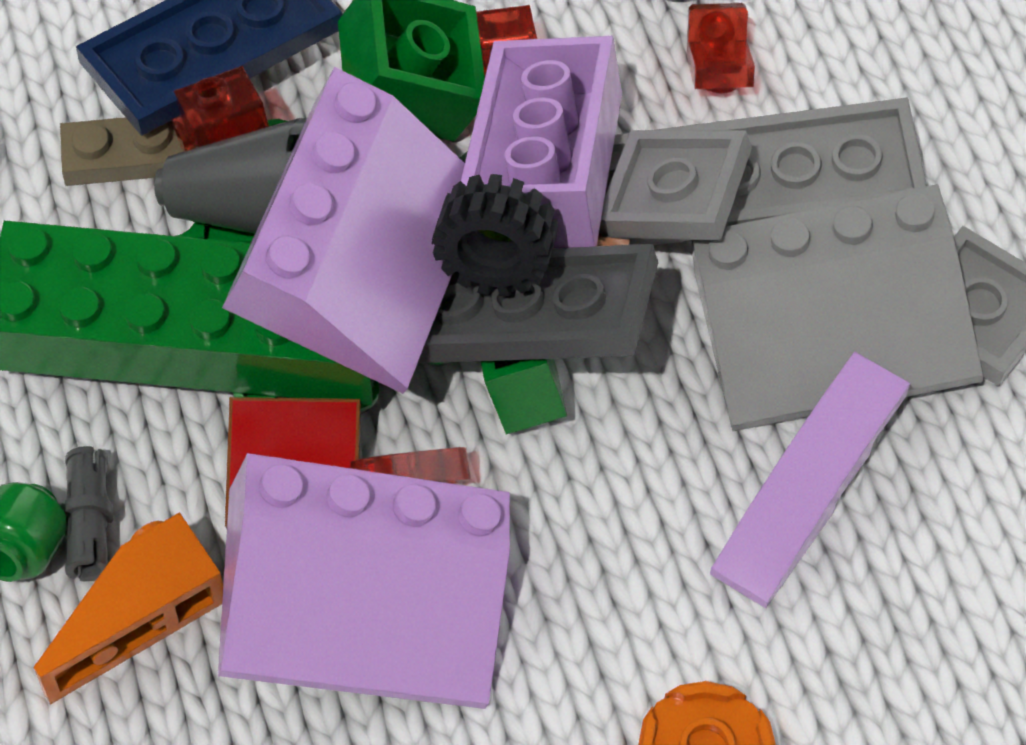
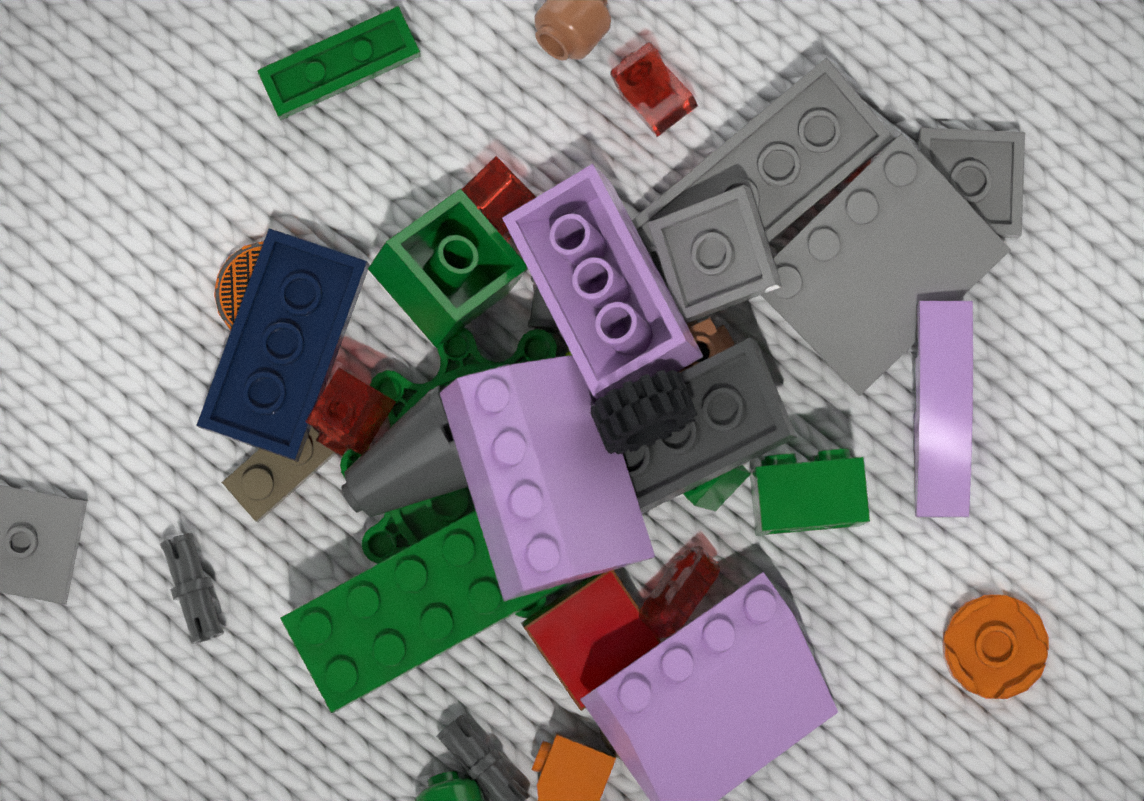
camera: 30 degrees left, 25 degrees up
(609, 456) = (809, 494): none -> green brick

